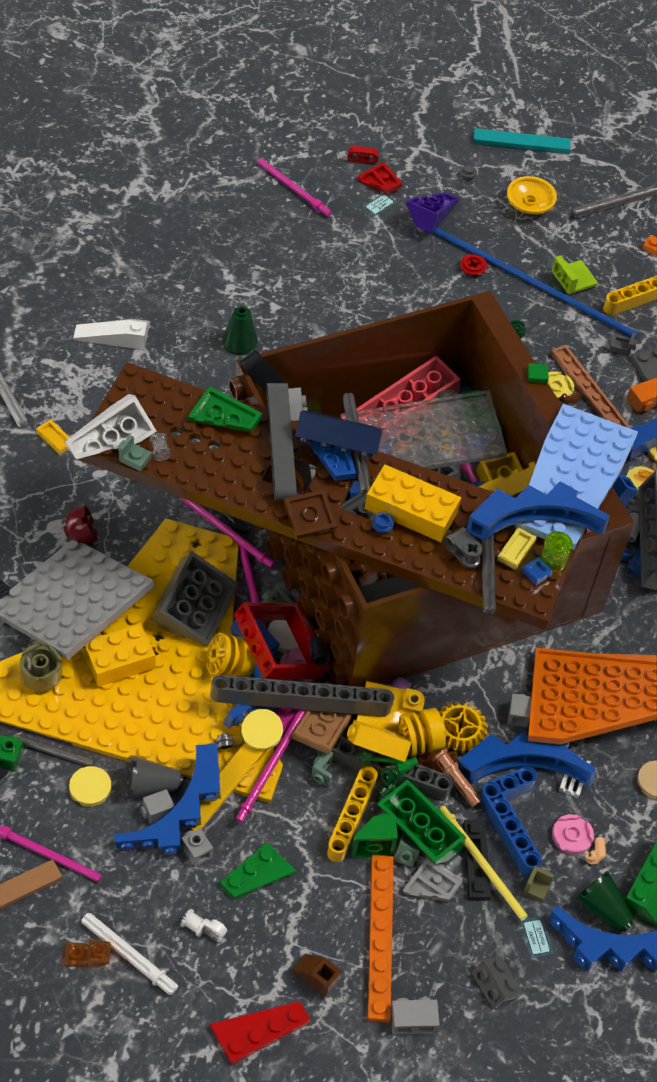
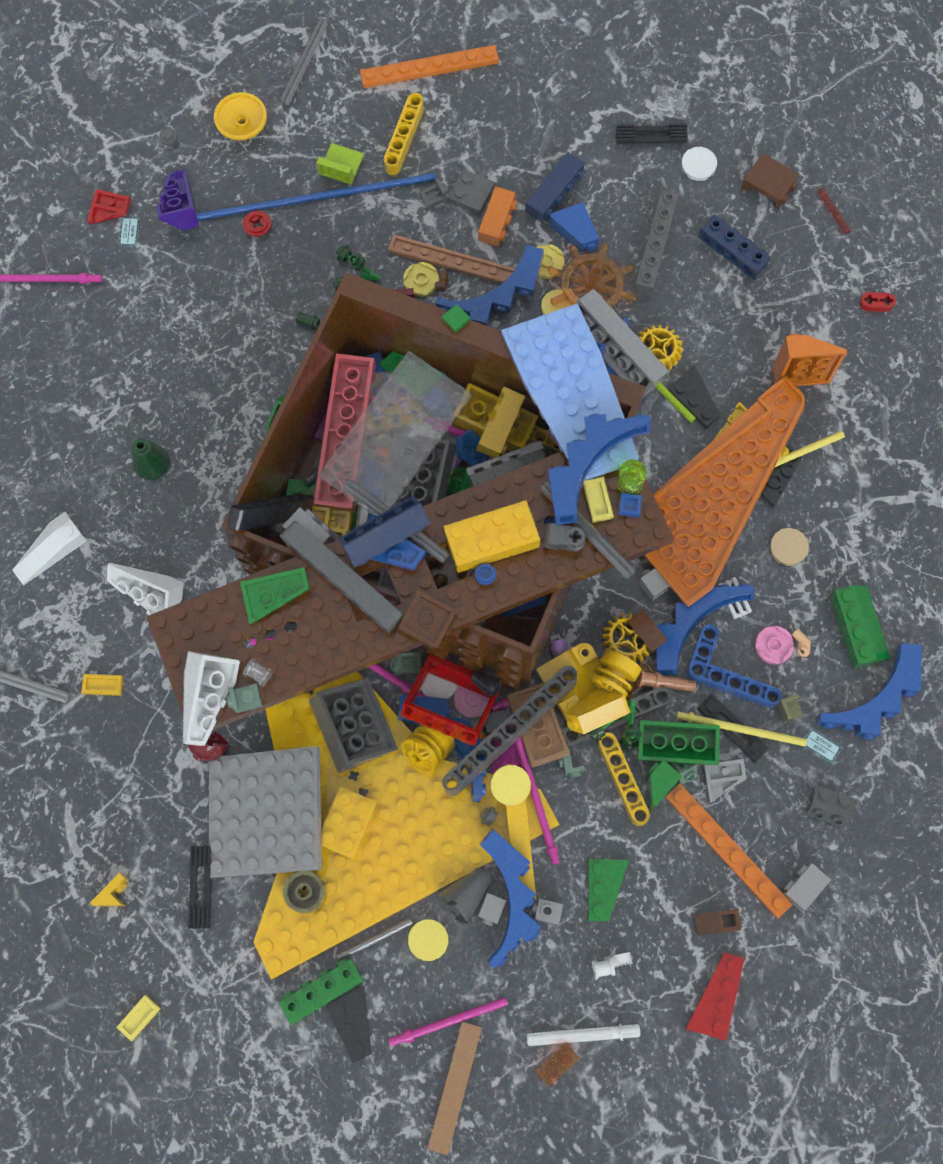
camera: 35 degrees left, 20 degrees up
(363, 155) = (71, 196): red beam -> none
(478, 728) = (647, 631): none -> reddish brown tile
(521, 141) = (178, 66): teal tile -> none
(607, 903) = (842, 677): dark green cone -> none

